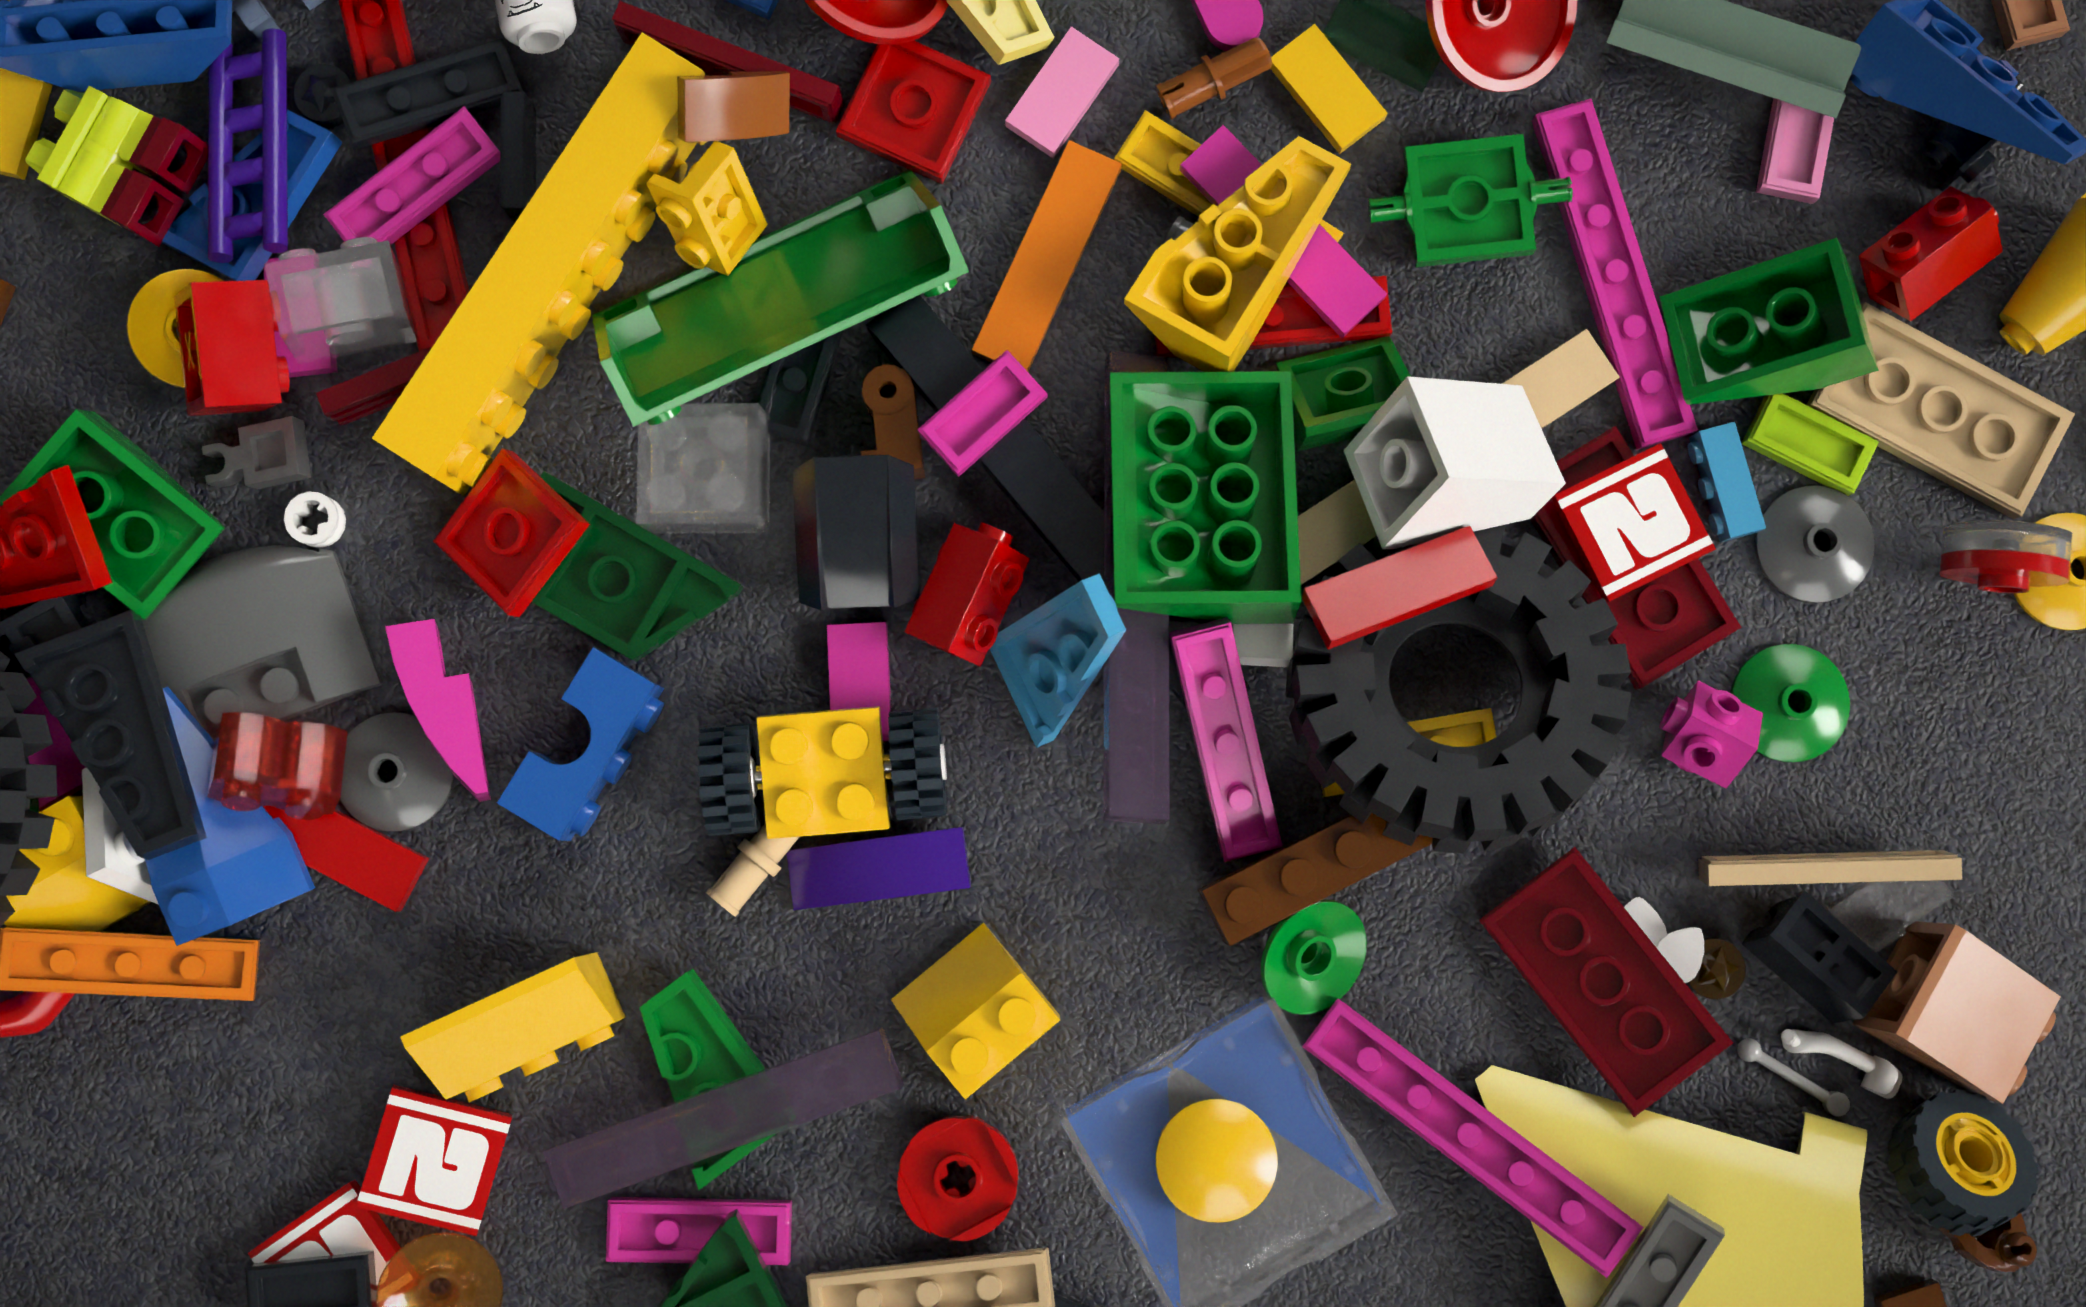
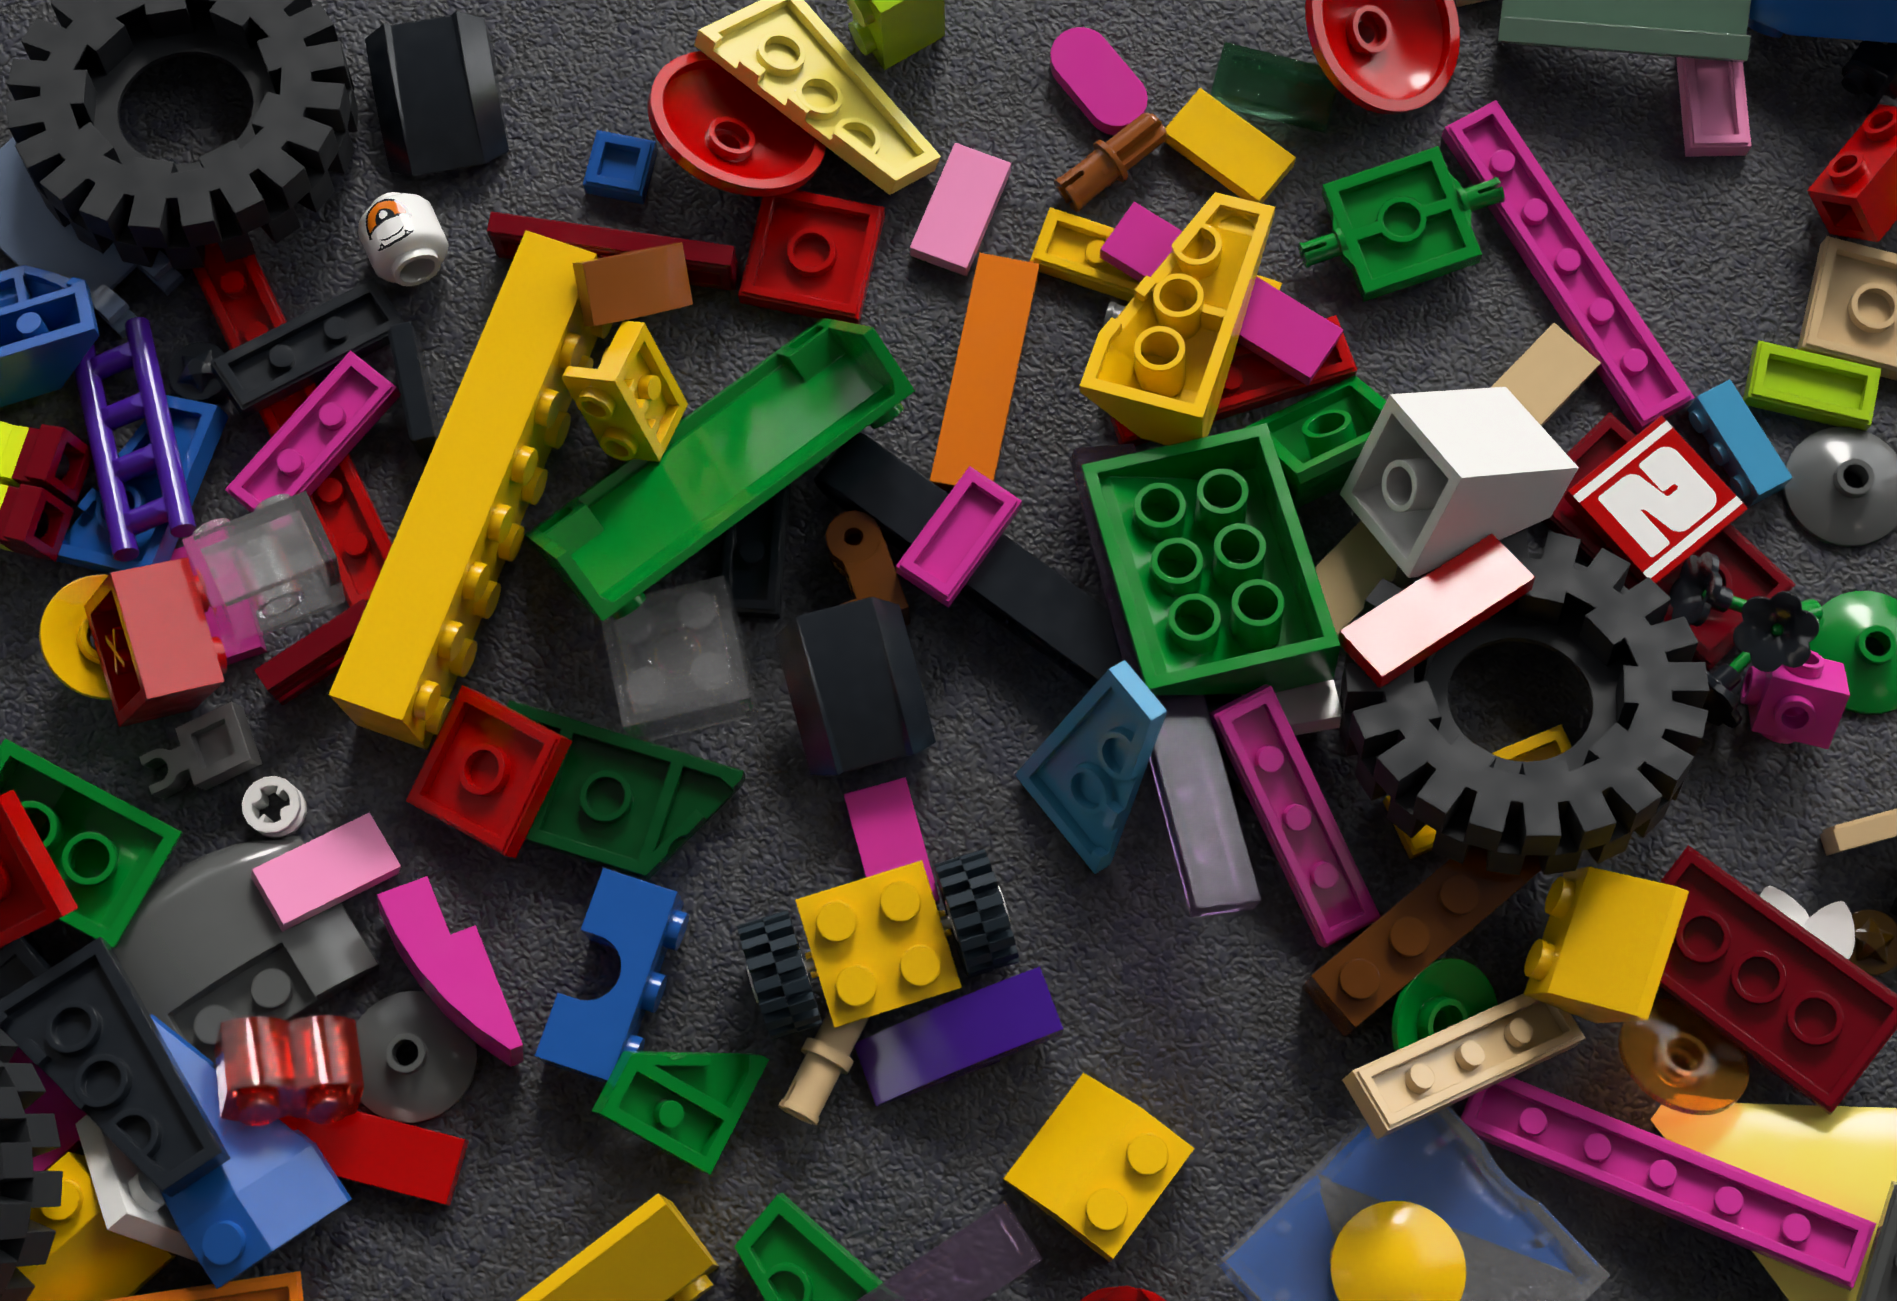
camera: 10 degrees left, 10 degrees down
(347, 590) = (325, 871): none -> bright pink tile
(620, 868) = (681, 1100): none -> green wing
(968, 592) = (986, 725): red brick -> none
(1319, 995) = (1459, 1062): none -> tan tile
(1471, 925) = (1604, 944): none -> yellow slope
(1541, 1044) = (1683, 1060): none -> clear orange dish
(1702, 676) = (1770, 635): none -> black plant
(1770, 328) = (1739, 279): green slope -> none

